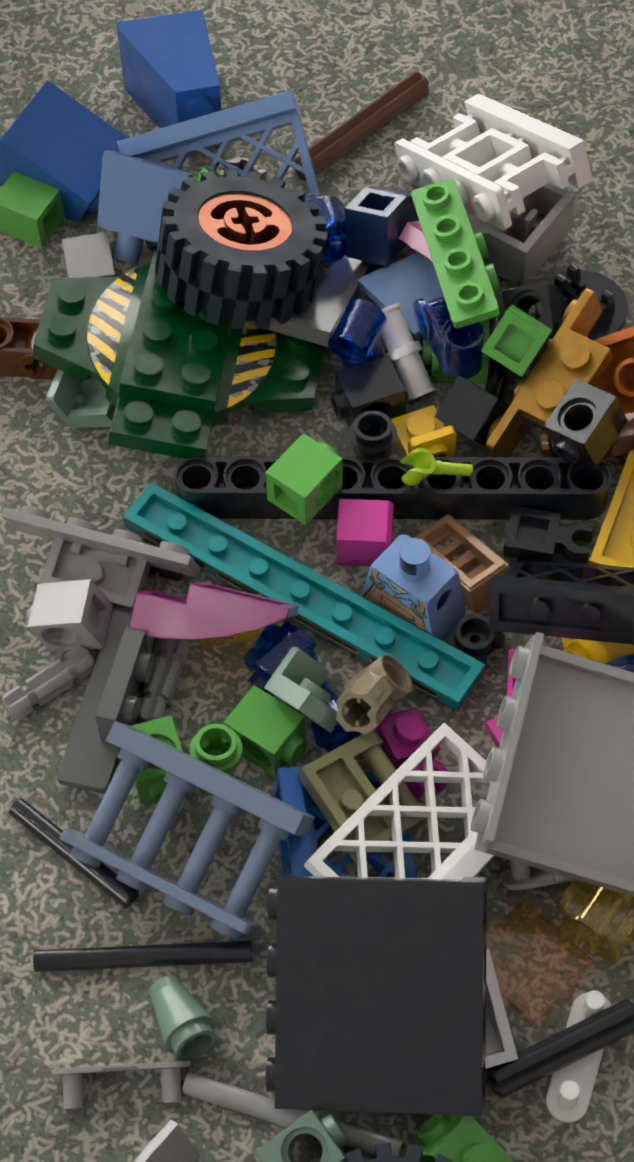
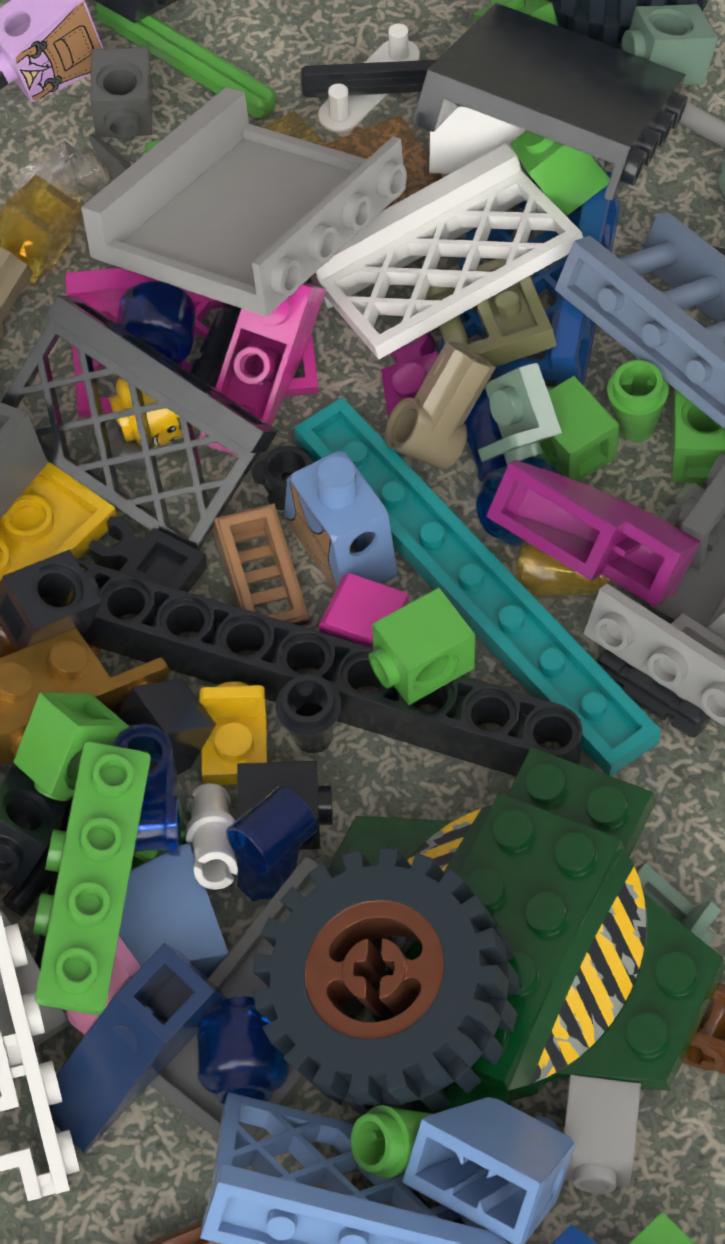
camera: 160 degrees left, 0 degrees up
(425, 464) = (266, 624): lime hand -> none

